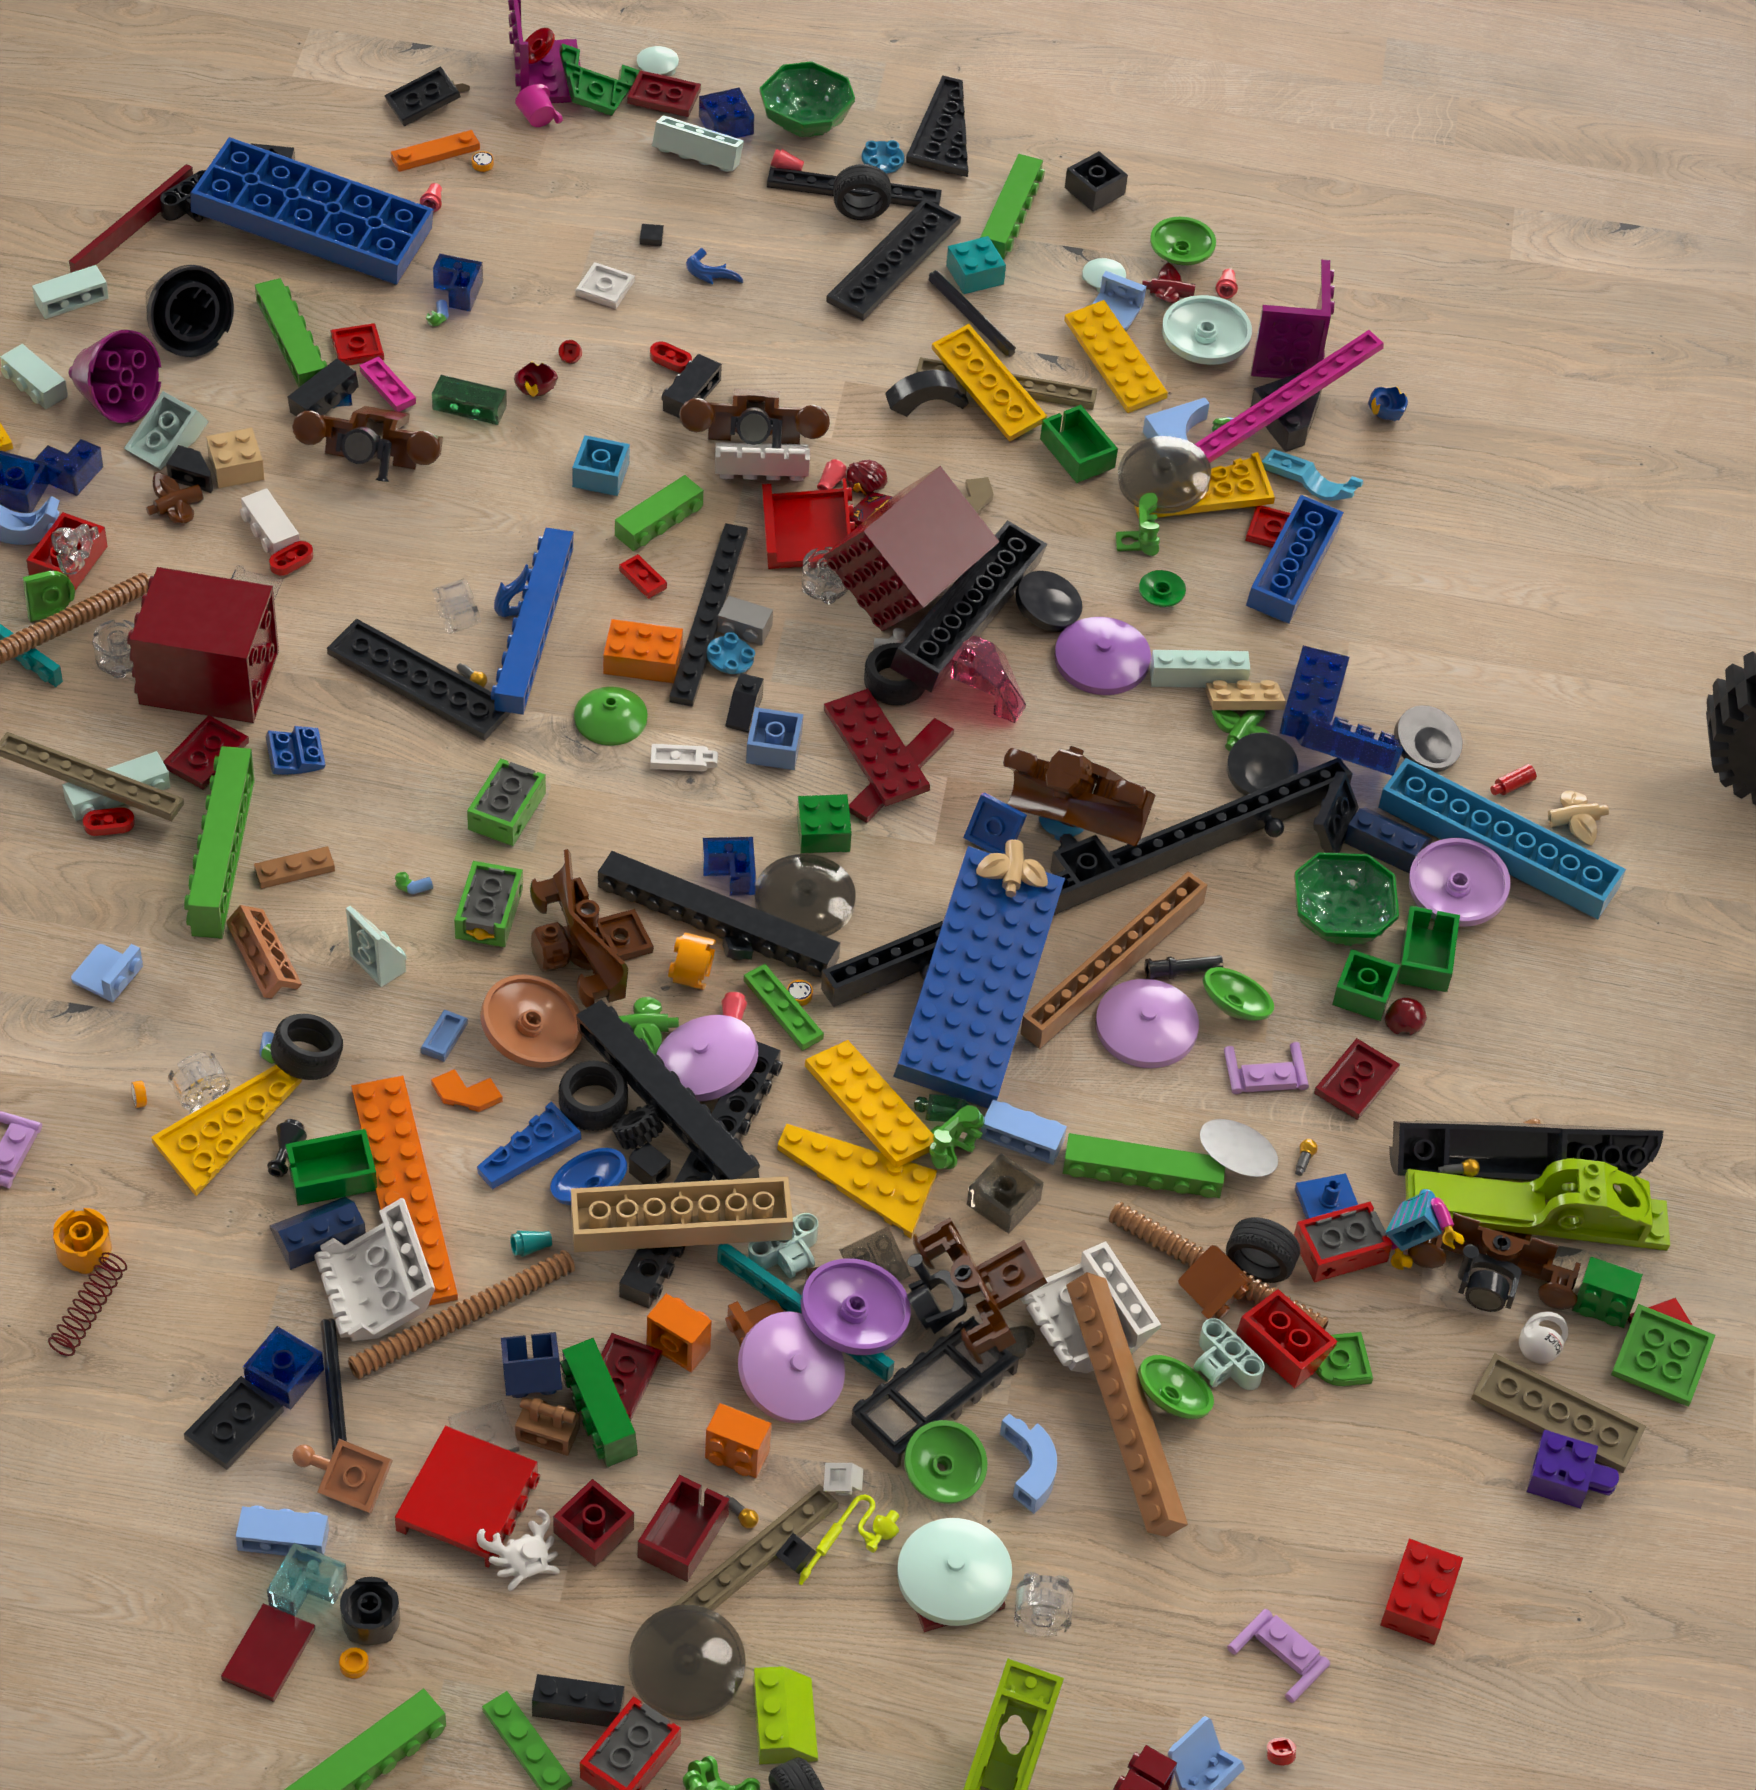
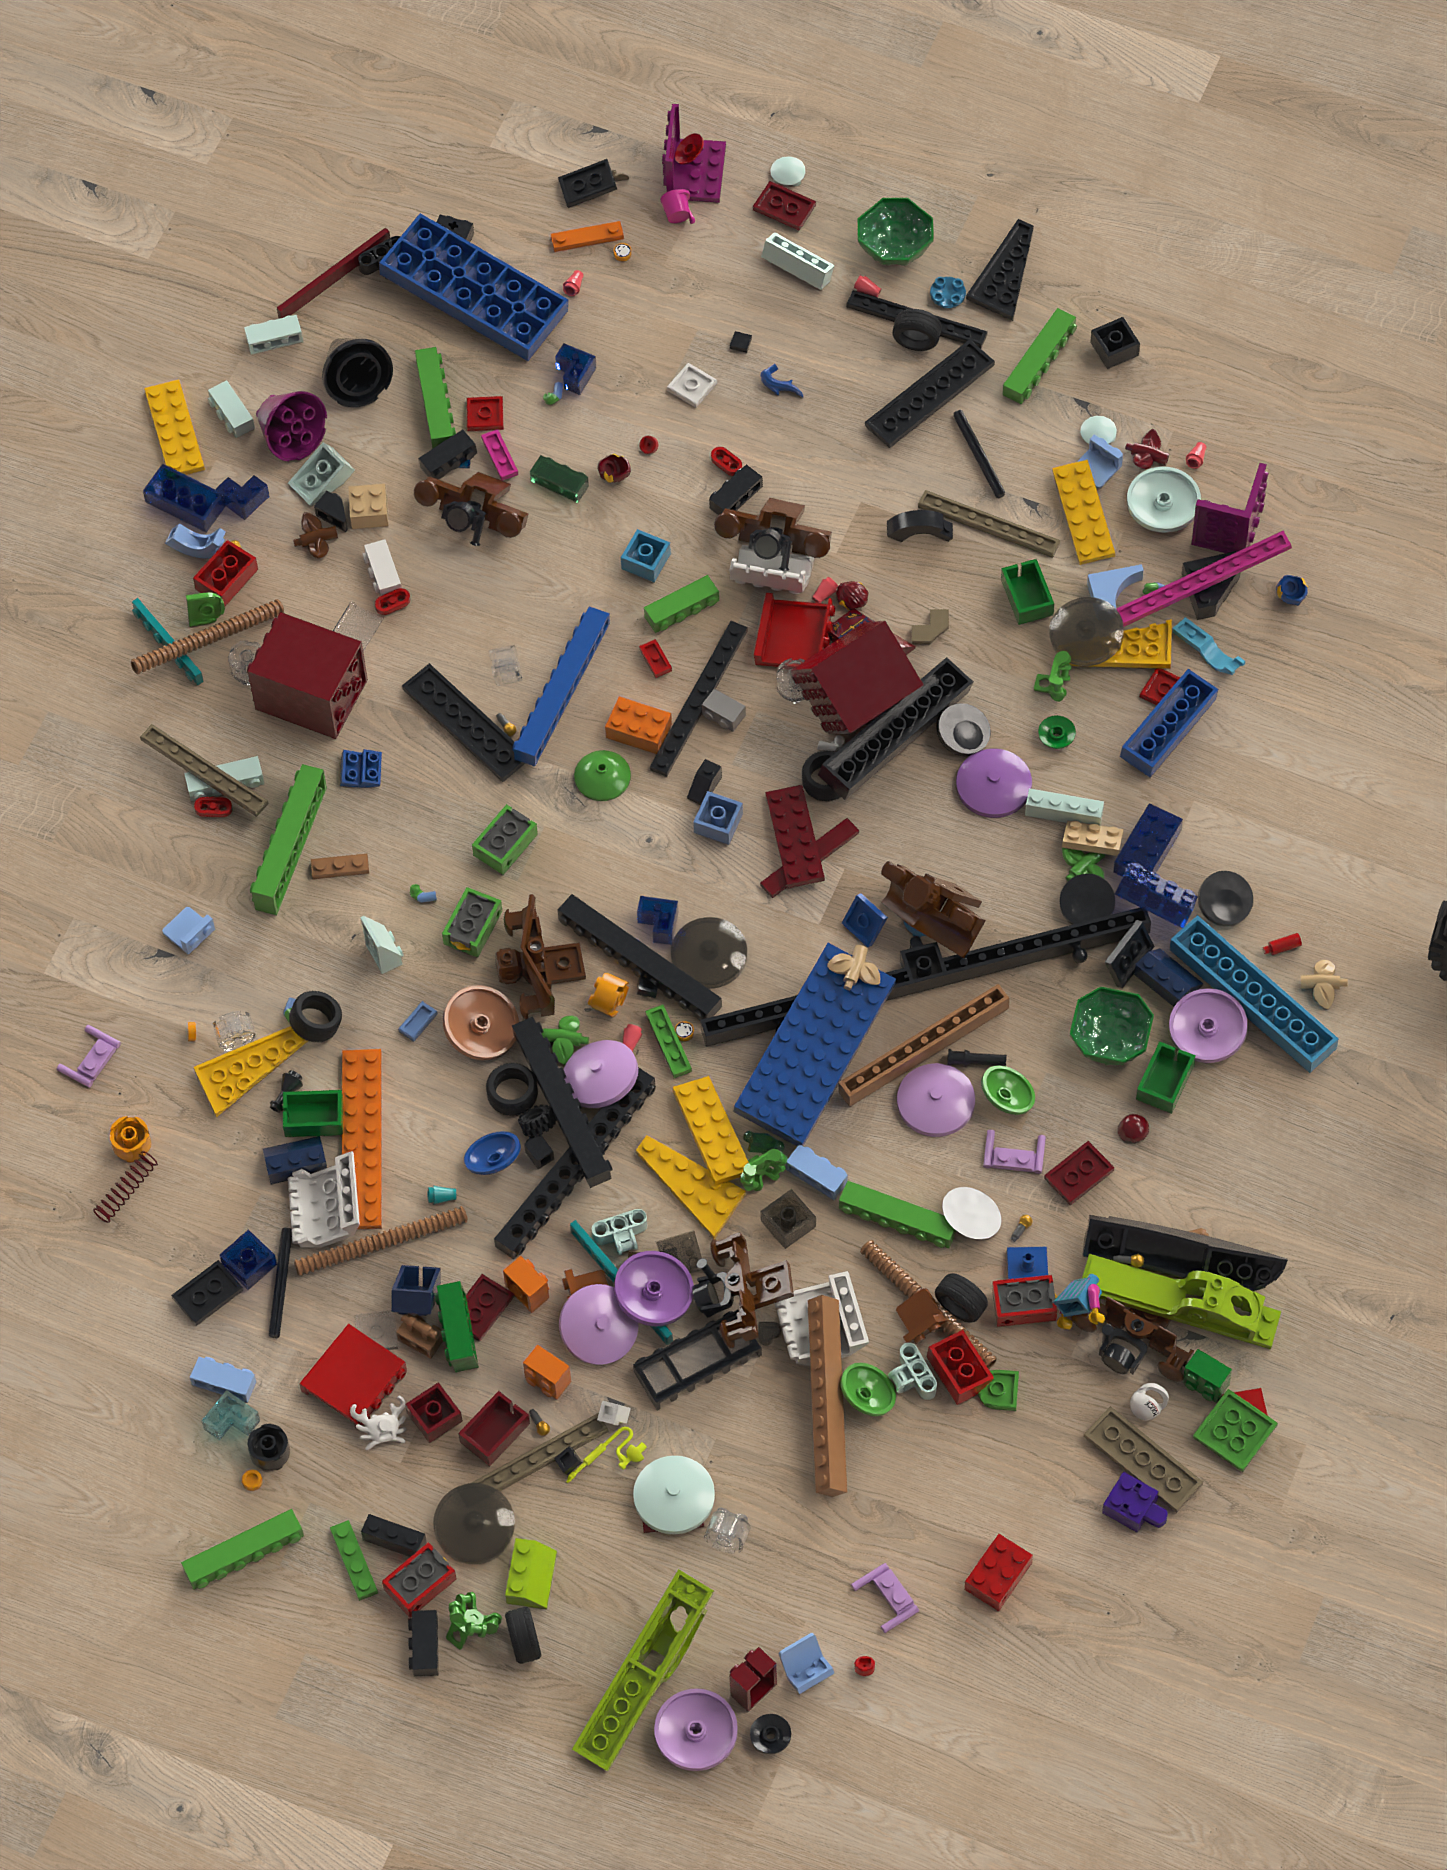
camera: 20 degrees right, 10 degrees up
(66, 541) = (221, 573): clear piece -> none
(196, 754) = (291, 756): dark red plate -> none
(259, 951) = (298, 930): nougat fence -> none
(268, 1652) = (196, 1461): dark red tile -> none
(351, 1474) = (277, 1347): nougat plate -> none
(476, 1097) = (429, 1074): orange tile -> none
(507, 592) = (545, 660): blue piece -> none
(536, 1143) = (467, 1116): blue wing -> none
(592, 88) = (727, 195): green wing -> none
(681, 1214) = (547, 1196): tan brick -> none
(682, 757) = (646, 821): white hinge -> none
(727, 113) = (829, 235): clear blue brick -> none
(730, 654) = (705, 737): dark azure dish -> none
(824, 823) = (737, 895): green brick -> none
(957, 1450) = (698, 1404): bright green dish -> none
(976, 265) = (993, 409): teal brick -> none
(987, 669) = (897, 787): clear pink brick -> none
(989, 382) = (972, 523): yellow plate -> none
(1037, 1483) = (753, 1439): light blue arch -> none
(1183, 241) = (1169, 404): bright green dish -> none
(1365, 985) = (1108, 1099): green brick -> none

